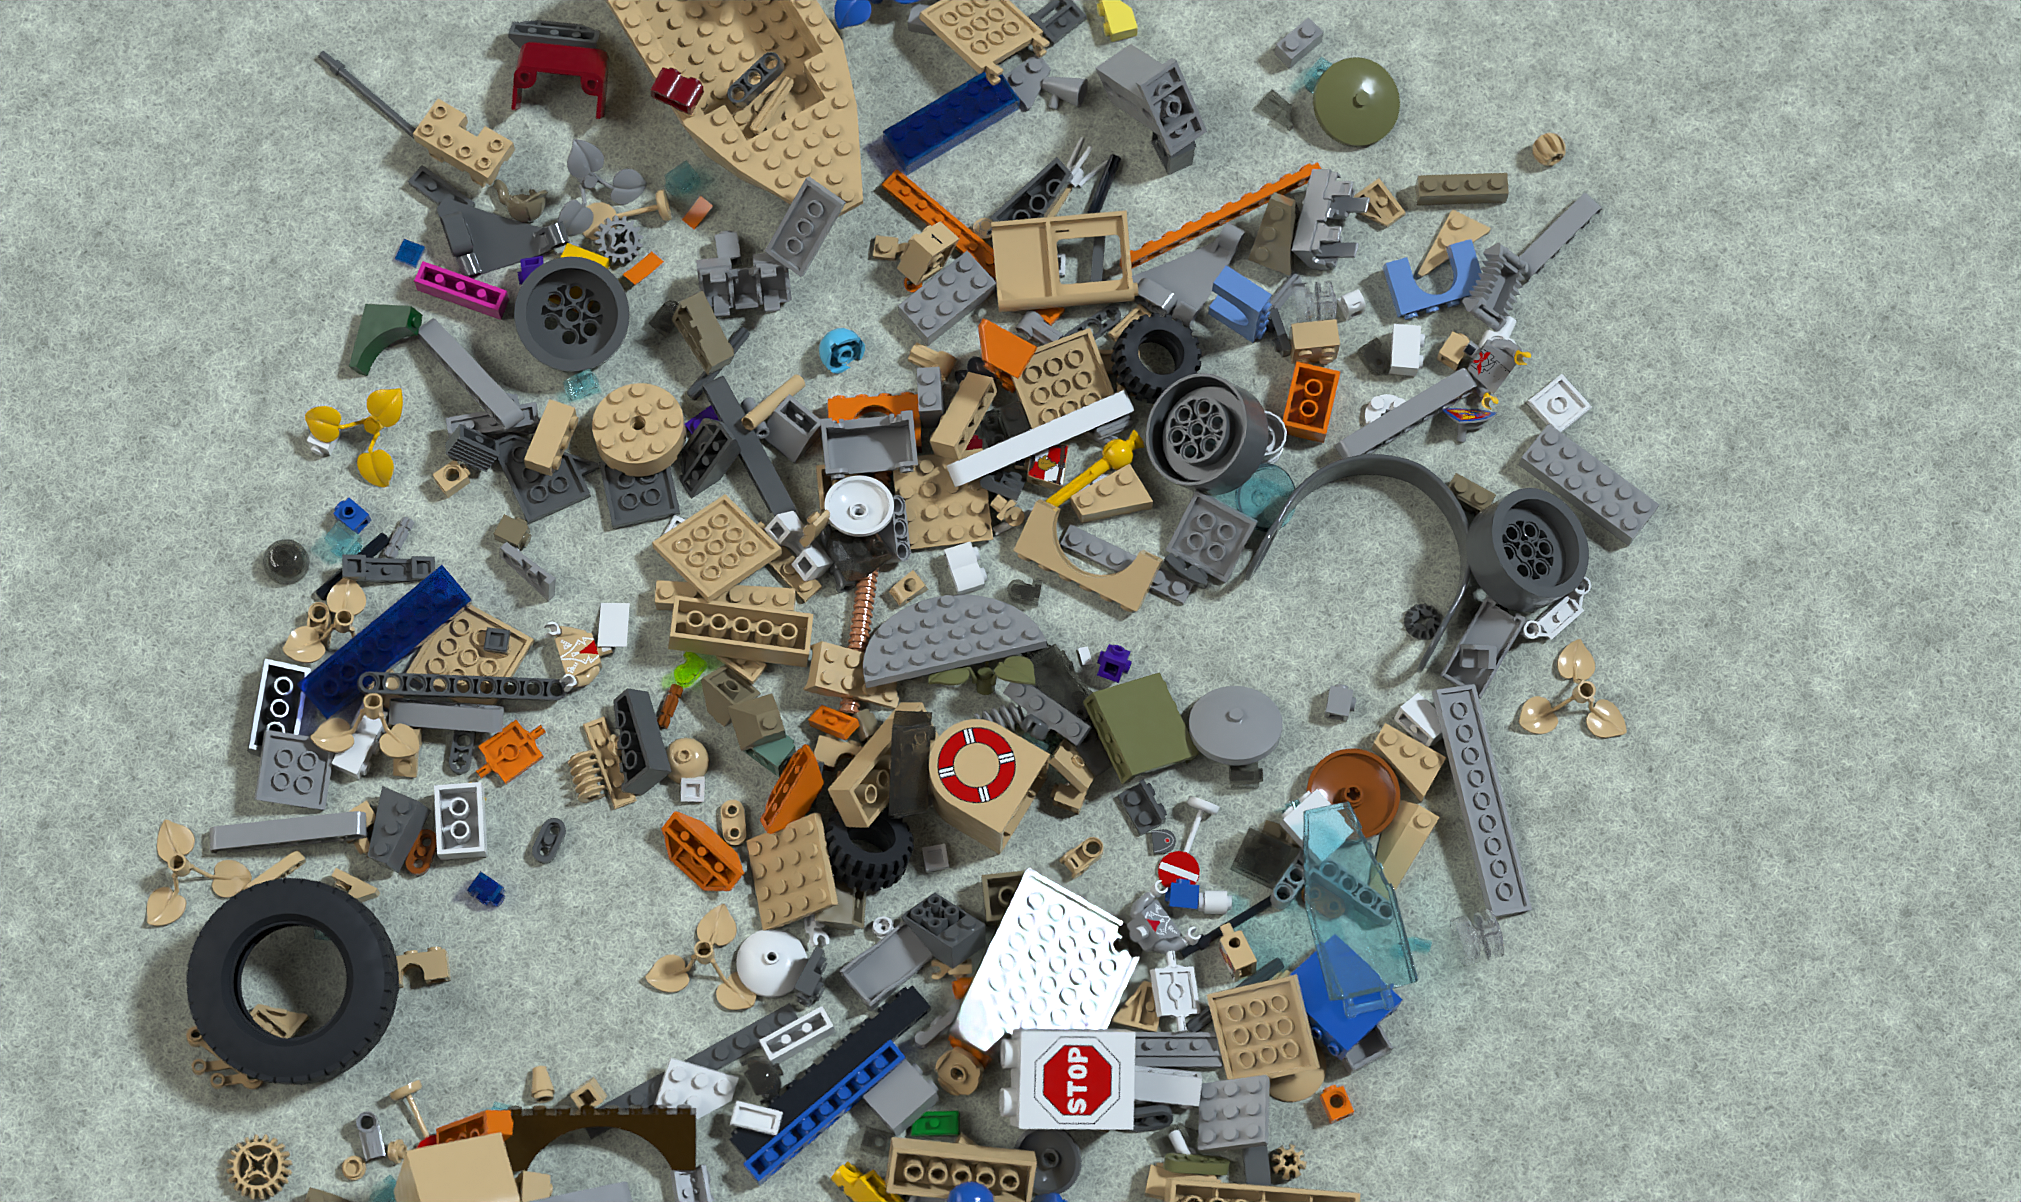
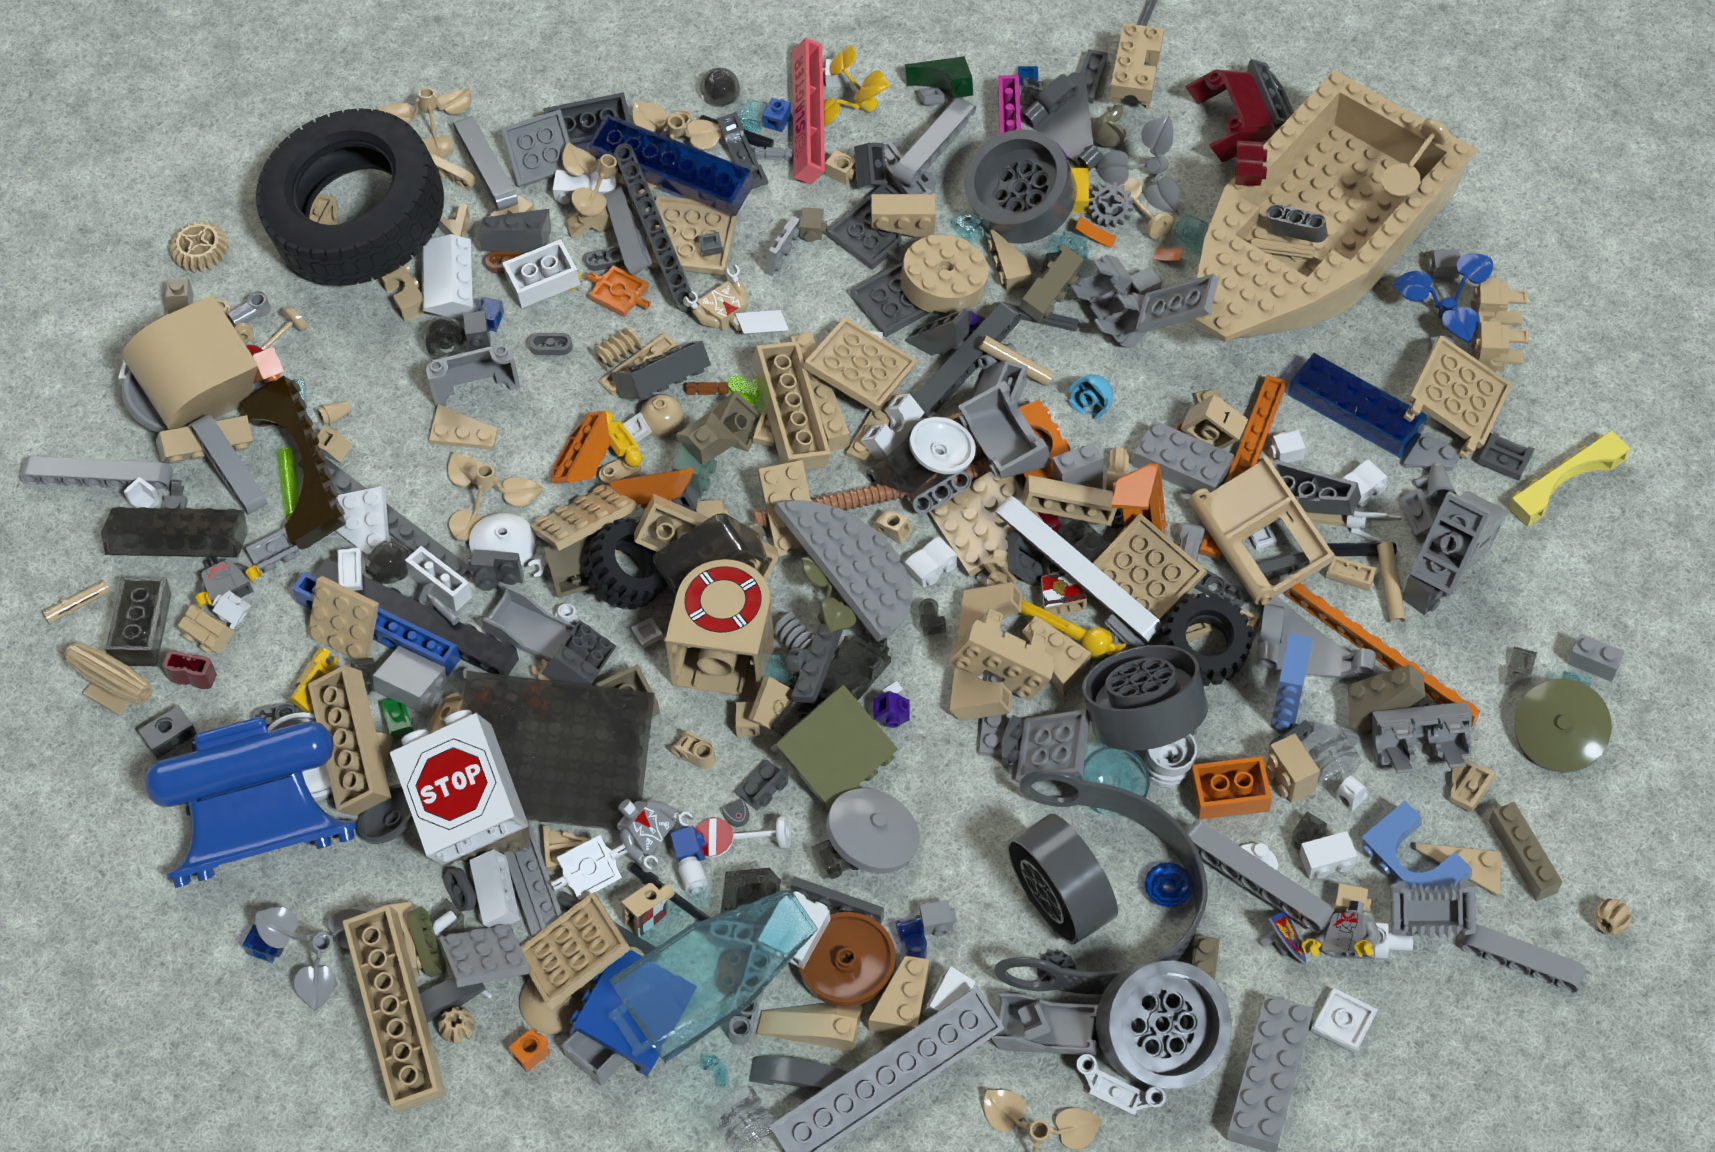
camera: 75 degrees right, 15 degrees down
(364, 483) = (808, 111): none -> coral brick
(396, 356) = (931, 96): none -> light grey plate
(424, 916) = (447, 276): none -> white slope
(437, 255) = (1029, 91): none -> clear smoke bracket
(494, 941) = (444, 333): none -> clear smoke cylinder
(515, 908) = (477, 330): none -> dark grey brick
(547, 957) = (469, 367): none -> light grey windscreen
(613, 1154) = (288, 480): none -> clear neon green piece
(617, 963) = (461, 430): none -> tan wing
(654, 287) = (1075, 243): none -> clear light blue brick
(654, 358) = (1014, 266): none -> tan slope
(702, 808) = (623, 442): none -> yellow plate
(816, 525) = (907, 419): tan slope -> none
(816, 1140) = (342, 619): none -> tan plate
(833, 722) = (740, 506): orange plate -> none
(833, 1043) = (438, 604): none -> light grey piece
(970, 201) = (1287, 447): none -> white brick
(1036, 151) = (1370, 481): none -> white brick
(1088, 119) = (1418, 512): none -> light grey plate
(1108, 540) = (1022, 666): none -> tan piece
(1131, 200) = (1351, 572): none -> tan plate
(1154, 176) = (1391, 582): none -> tan piece
(1284, 791) = (836, 900): none -> dark grey plate
(1348, 731) = (912, 935): none -> clear blue piece
(1365, 577) = (1062, 878): none -> dark grey wheel
(1385, 484) = (1172, 875): none -> clear blue dish
(1444, 877) = (793, 1072): none -> dark grey slope

